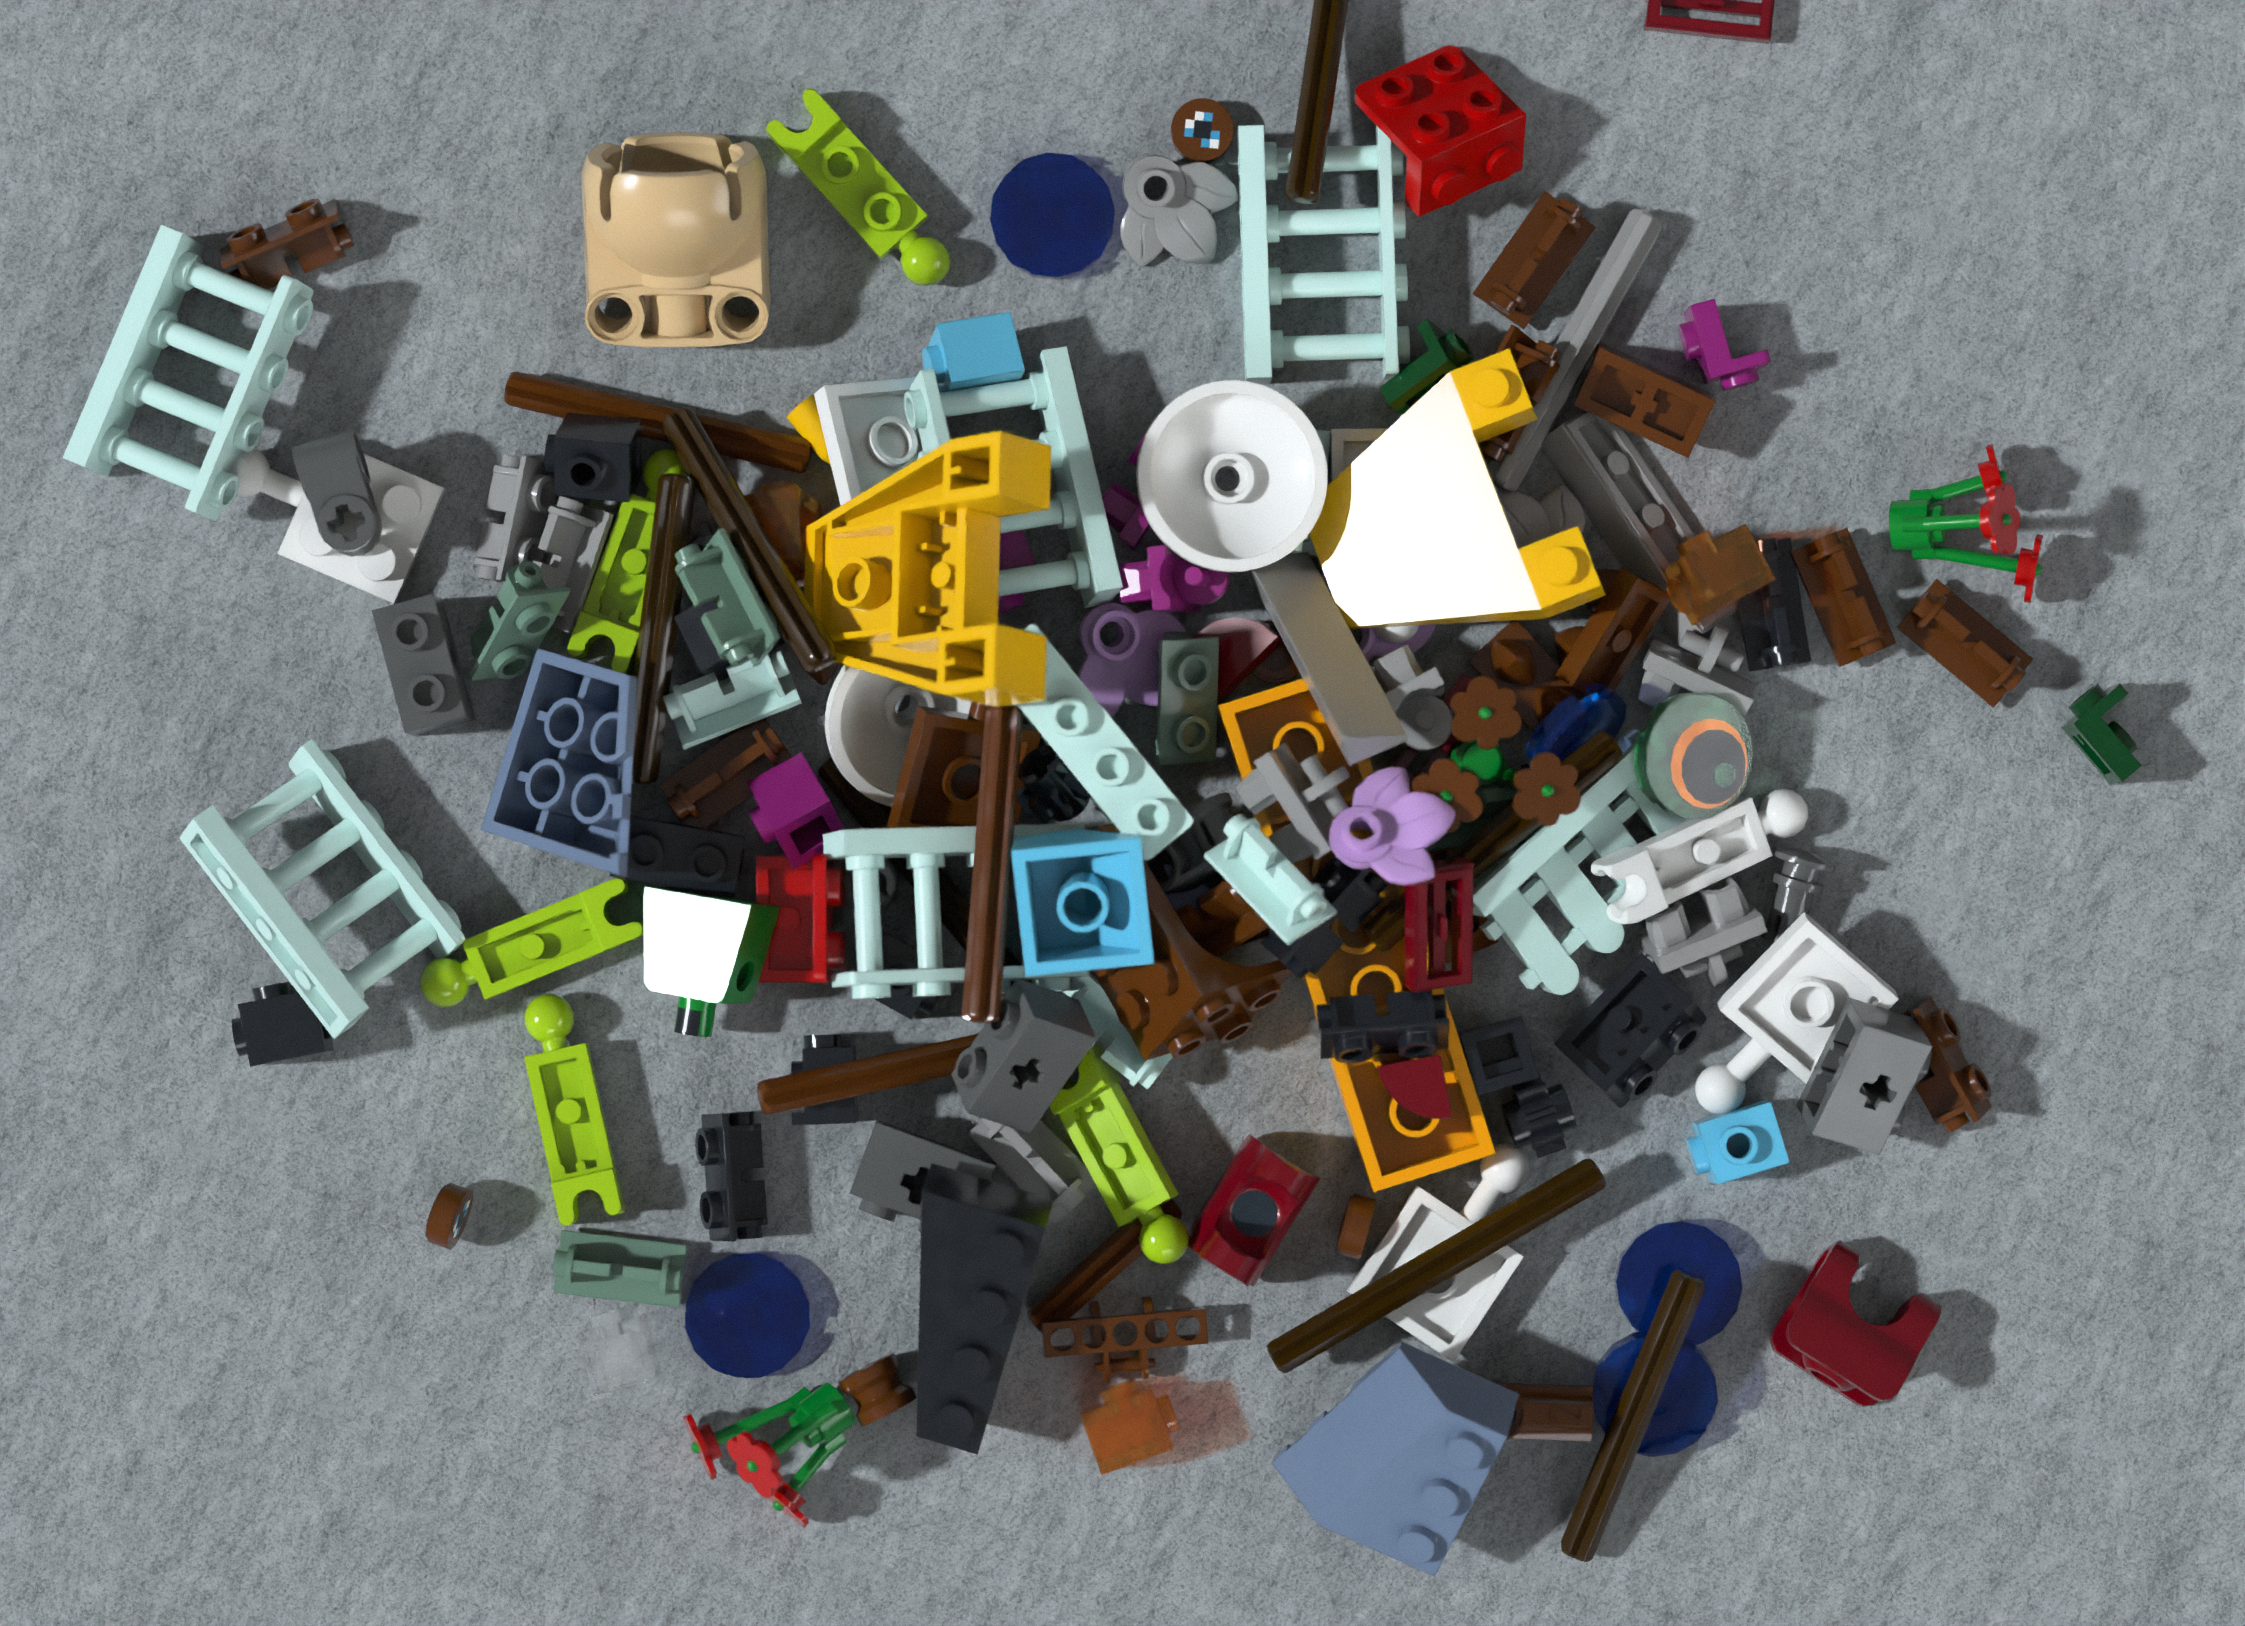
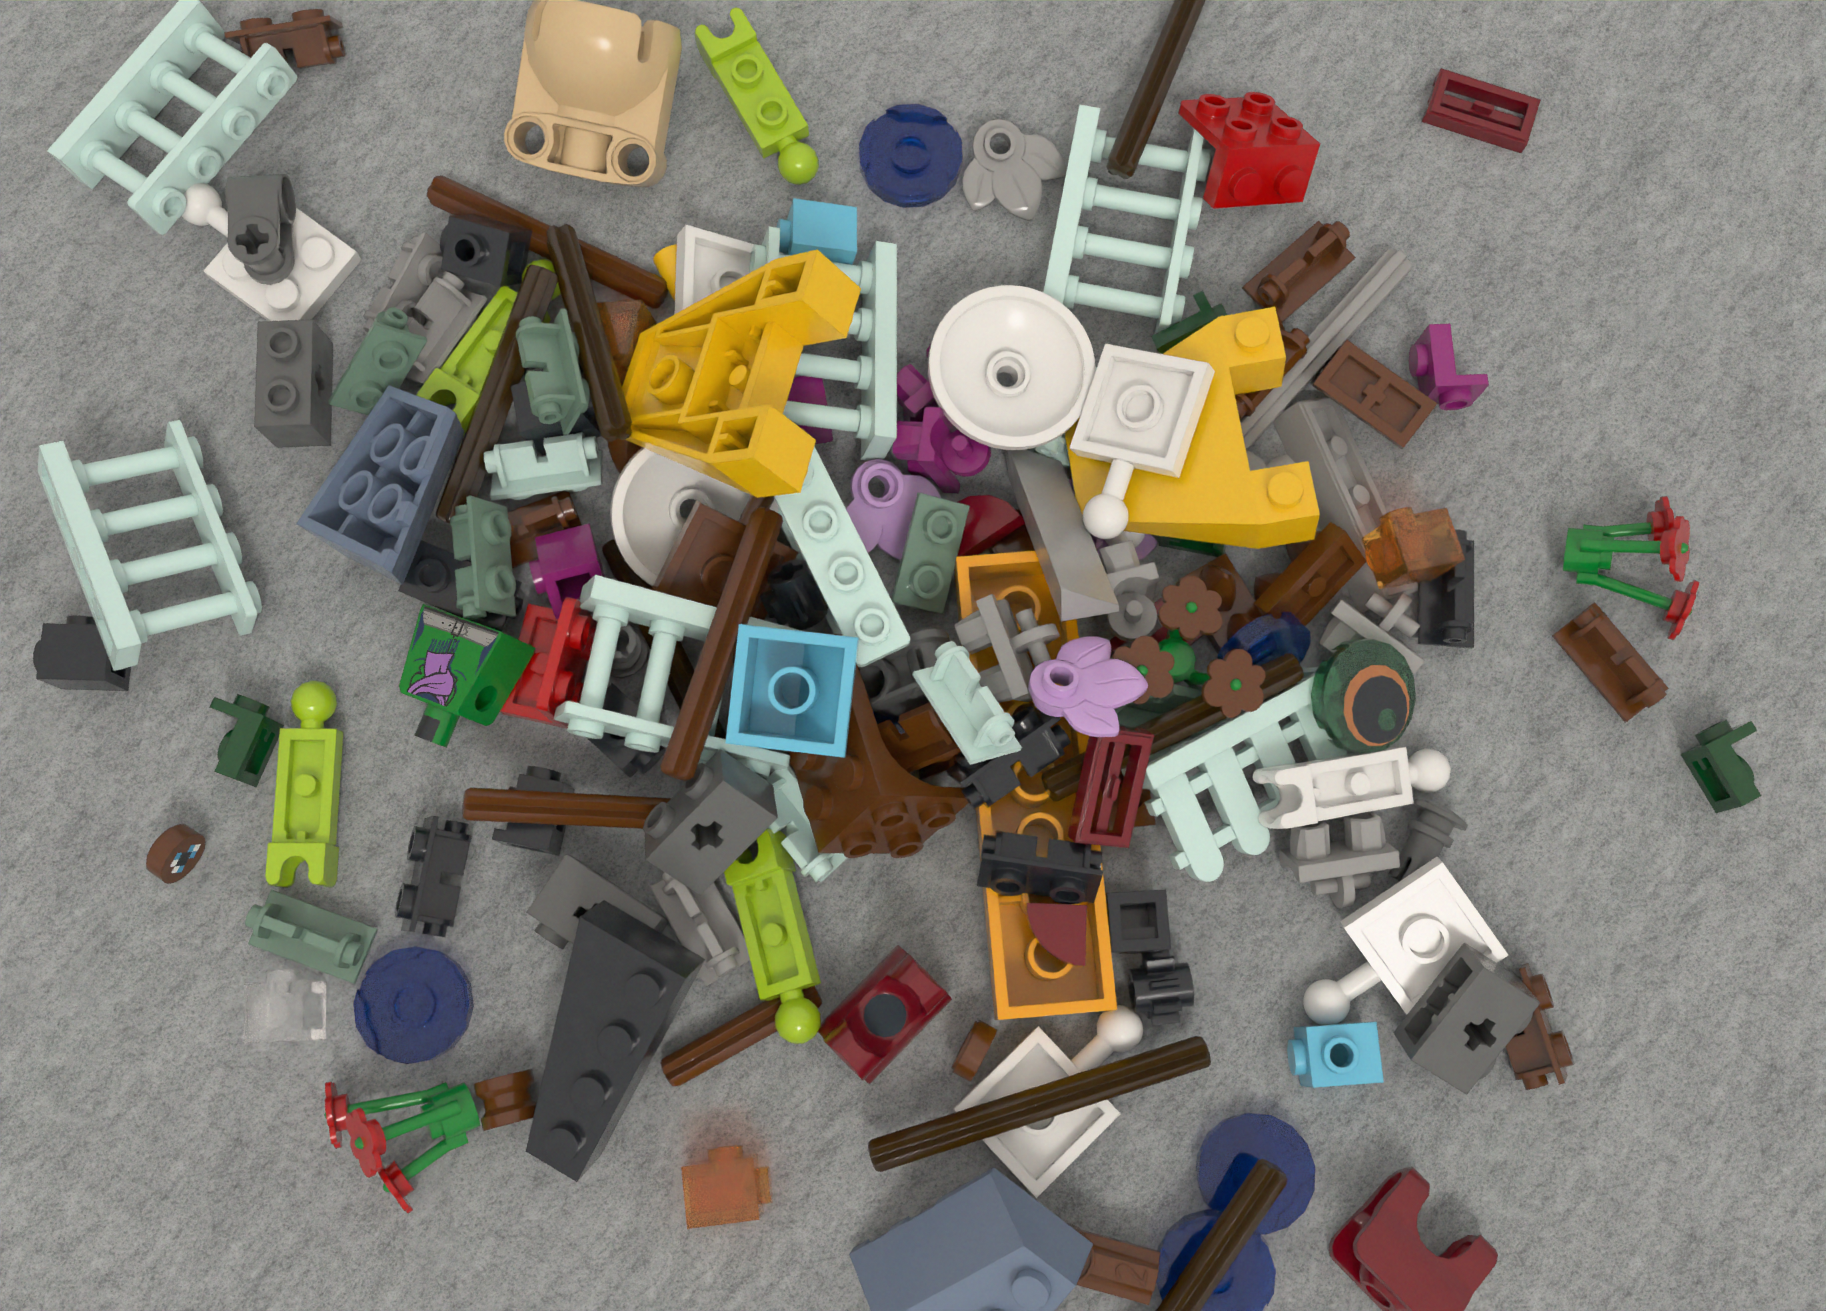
camera: 15 degrees right, 10 degrees down
(491, 1087) = (251, 742): none -> dark green bracket
(532, 946) = (320, 637): lime plate -> none
(696, 797) = (483, 535): none -> sand green hinge
(1144, 1339) = (756, 1111): reddish brown piece -> none
(1202, 130) = (1048, 115): reddish brown tile -> none
(1387, 506) = (1139, 418): none -> white plate
(1632, 1031) = (1259, 931): black bracket -> none
(1843, 597) = (1511, 598): reddish brown hinge -> none

